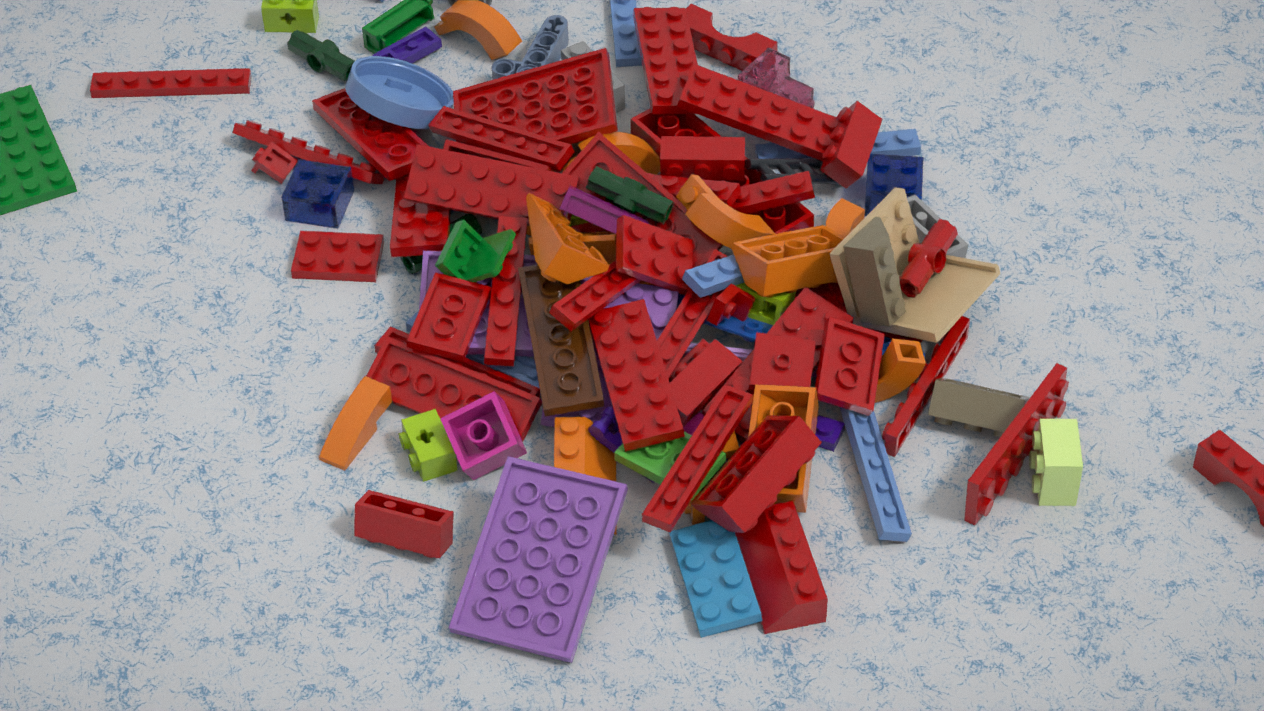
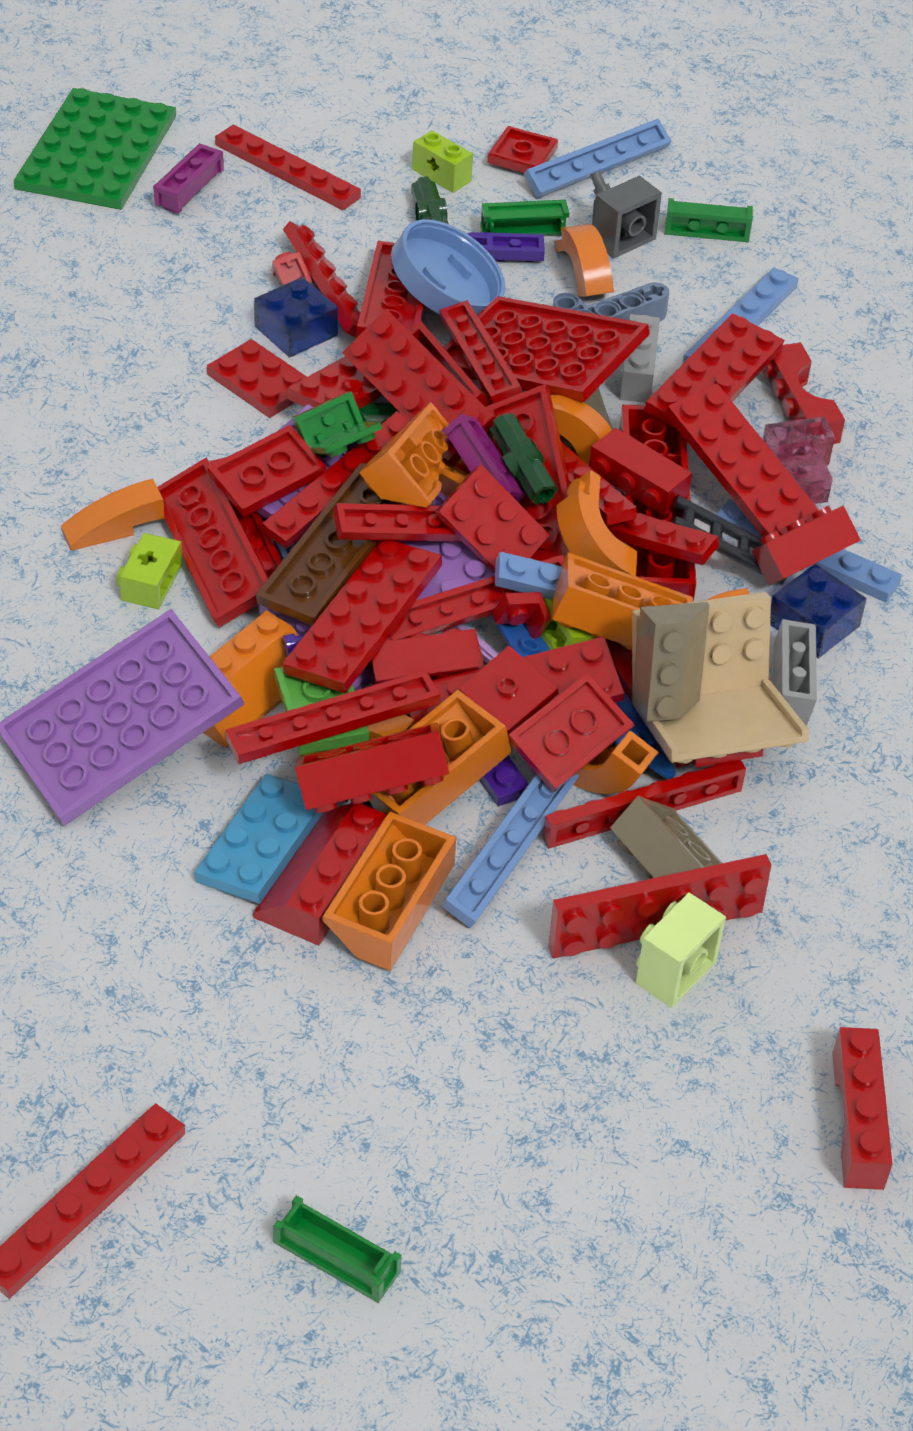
camera: 35 degrees right, 0 degrees up
(111, 134) = (188, 177): none -> magenta container
(403, 524) = (52, 617): red brick -> none
(483, 435) = (193, 585): dark pink brick -> none
(846, 548) = (391, 889): none -> orange slope
(927, 258) = (752, 683): red piece -> none

